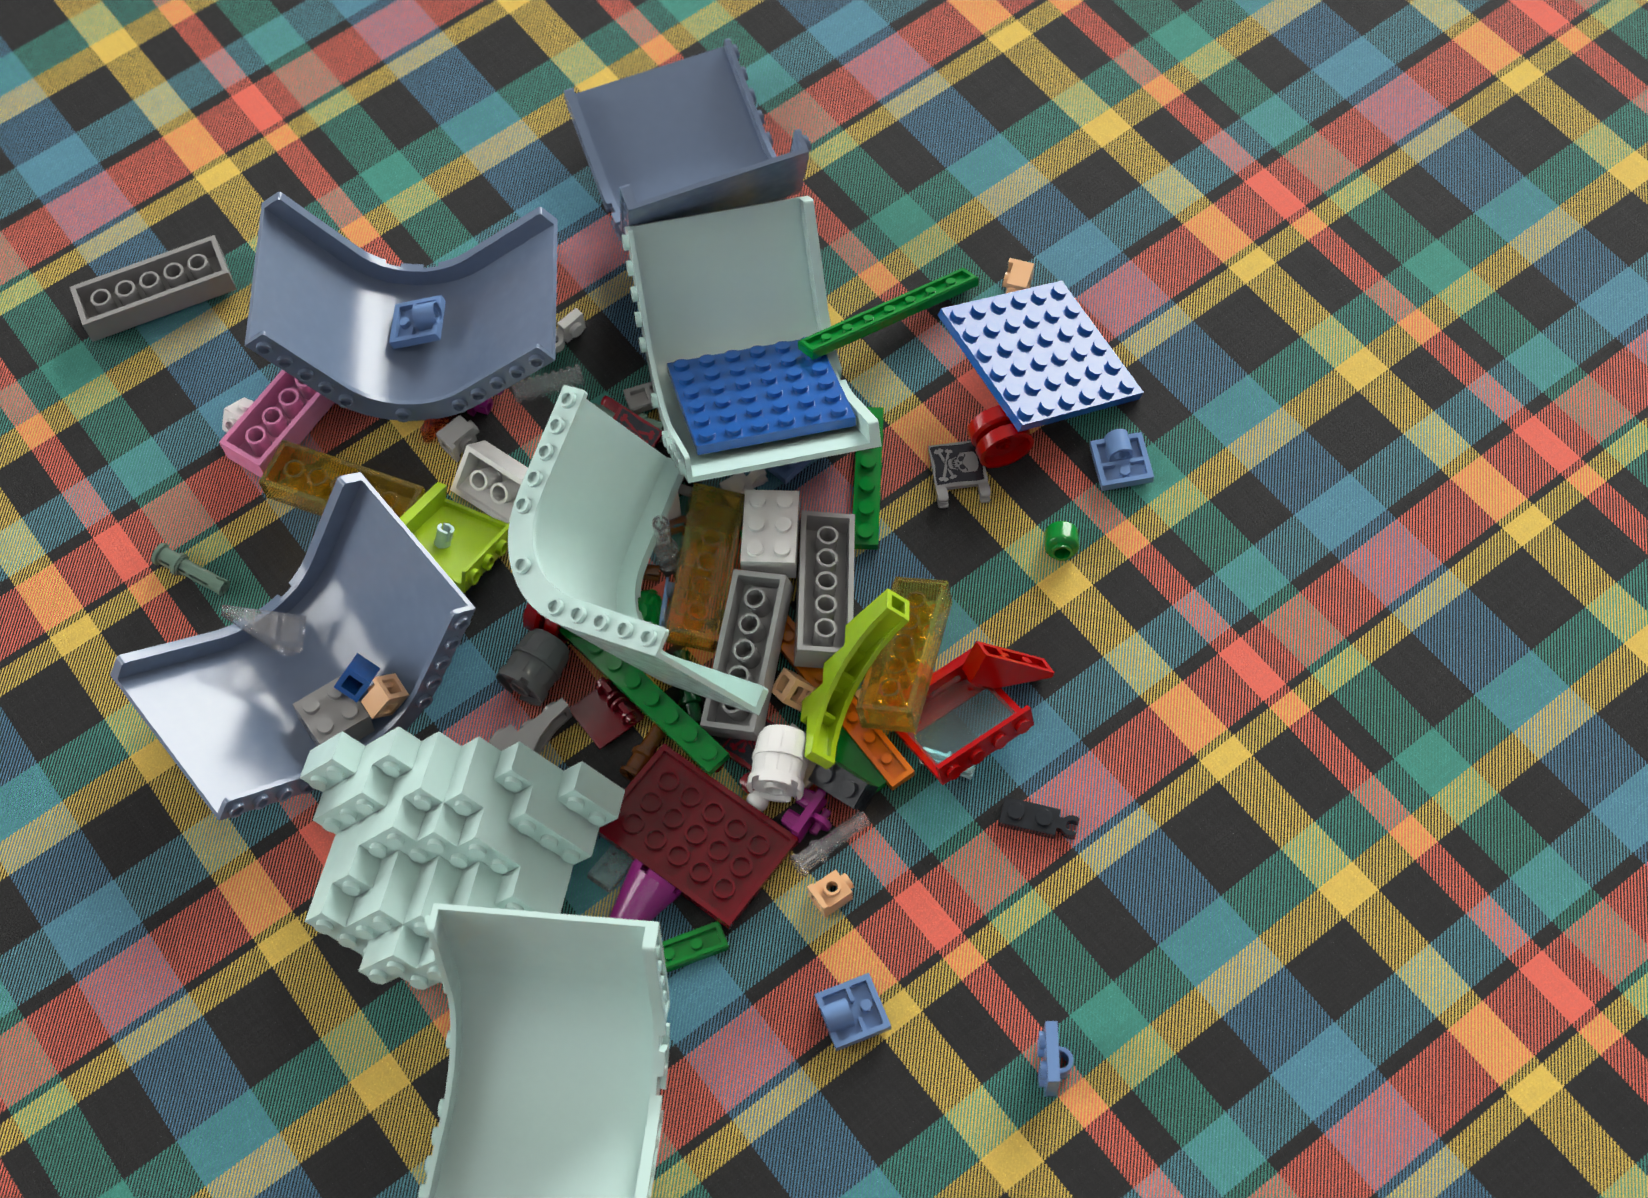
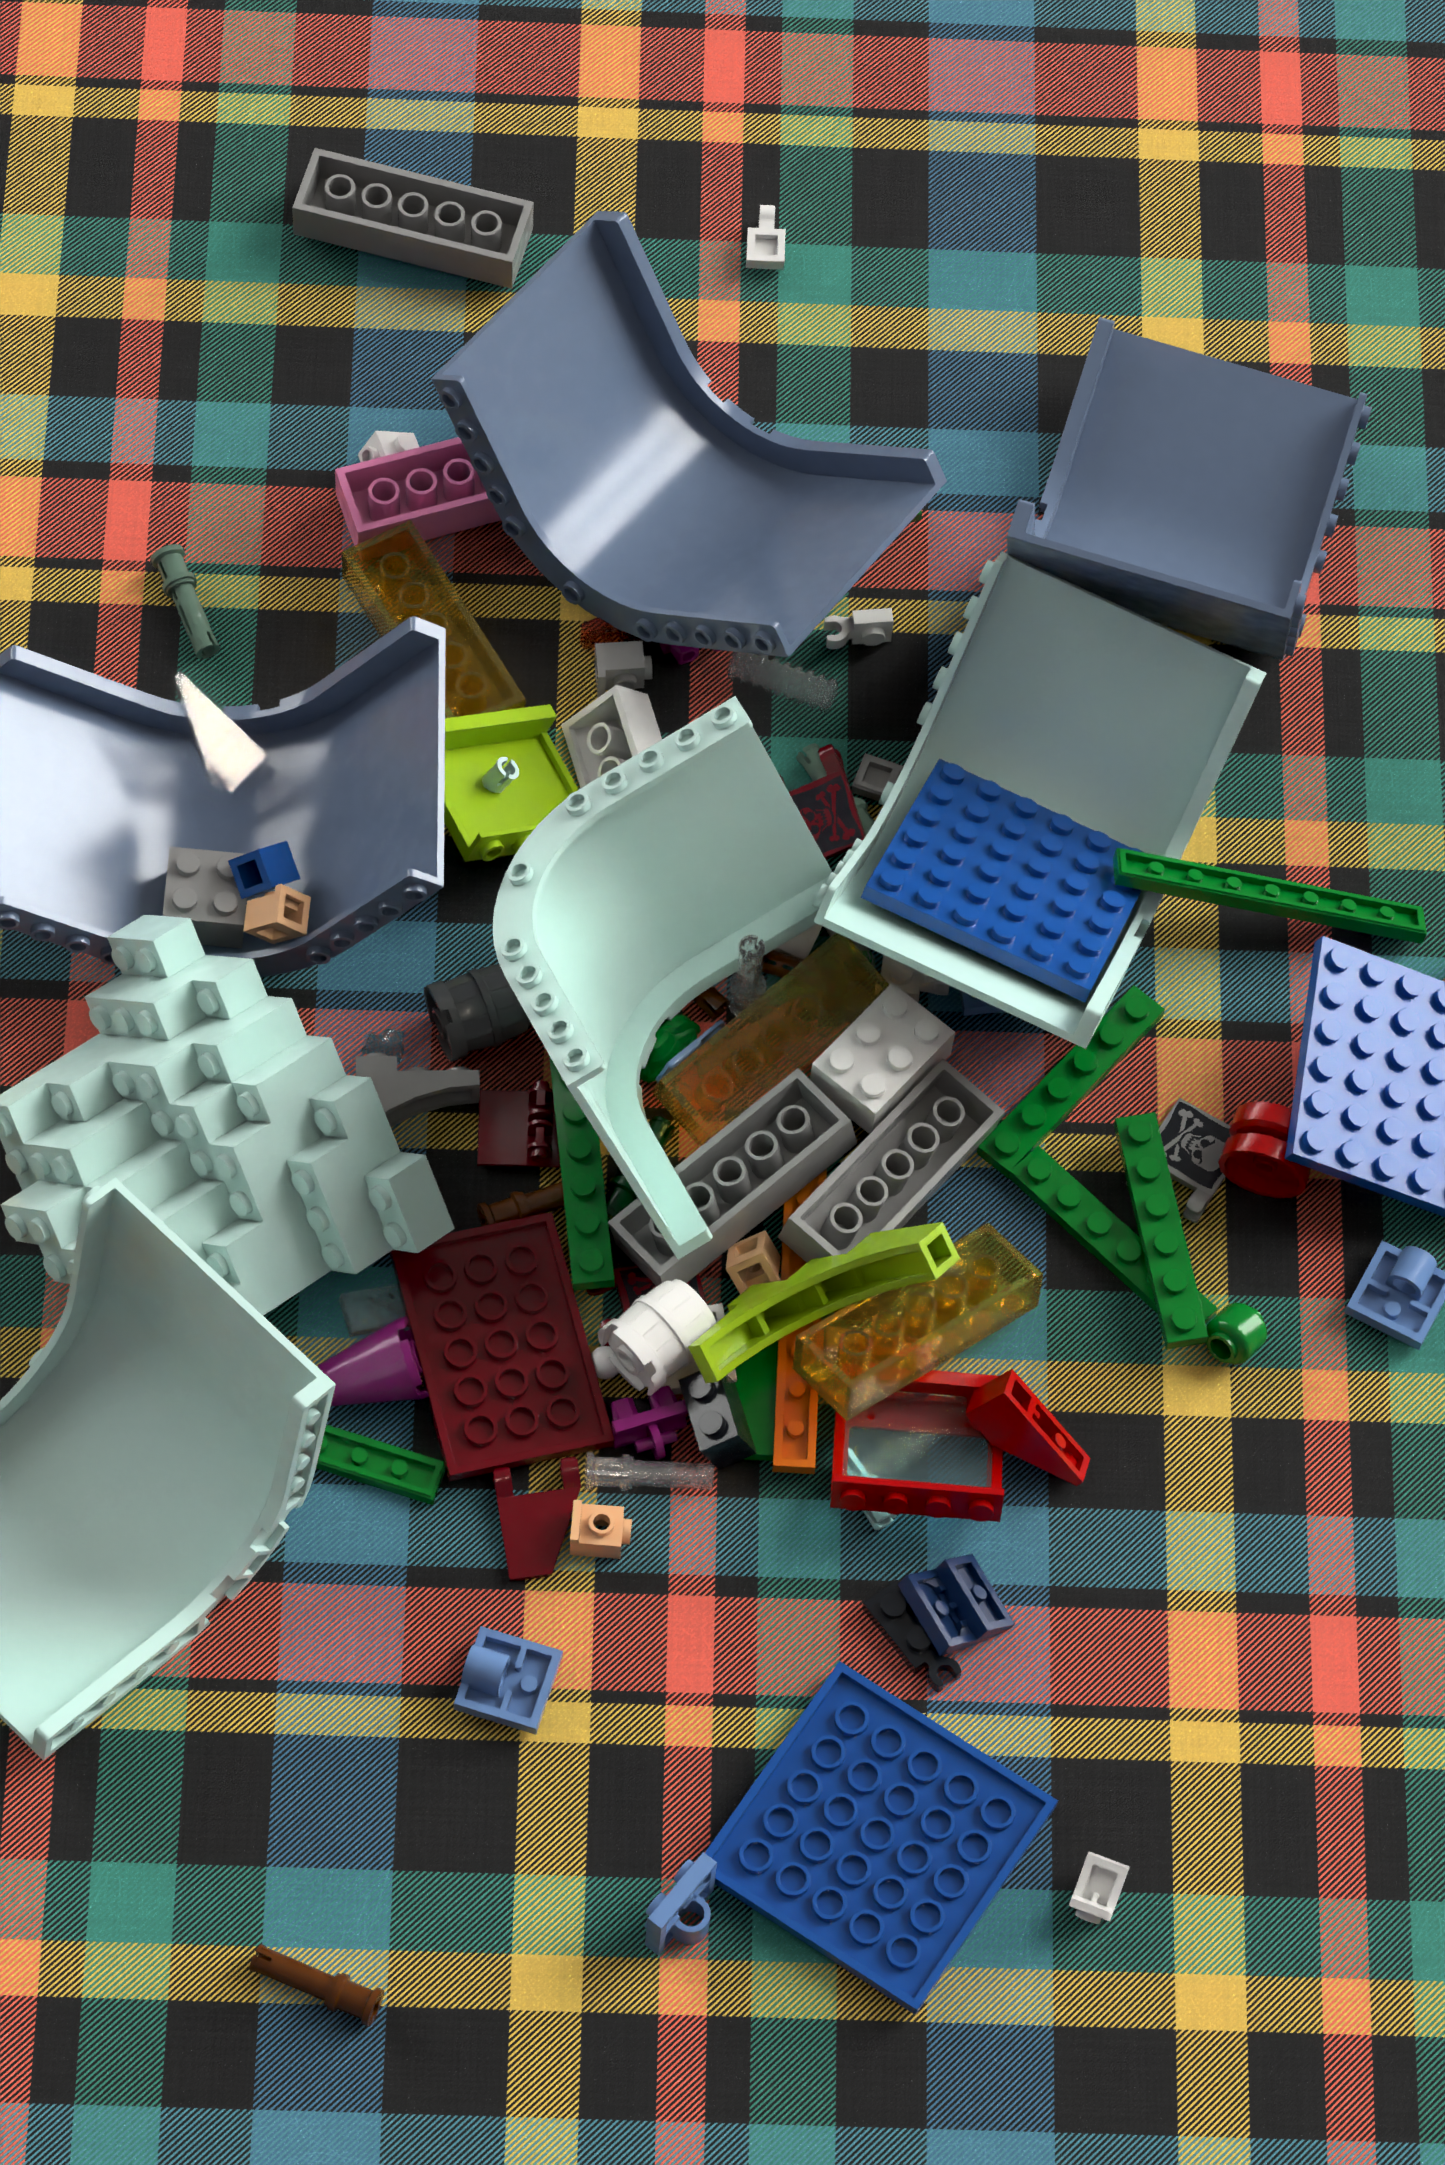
camera: 30 degrees right, 0 degrees up
(353, 177) = (765, 243): none -> white plate
(417, 322) = (685, 488): medium blue plate -> none
(499, 721) = (389, 1043): none -> clear light blue tile
(792, 915) = (535, 1522): none -> dark red flag
(959, 542) = (1089, 1223): none -> green plate
(981, 516) = (1160, 1231): none -> green plate
(1046, 785) = (956, 1604): none -> dark blue slope
(1114, 940) = (877, 1837): none -> blue plate
(1246, 875) = (1098, 1888): none -> white bracket

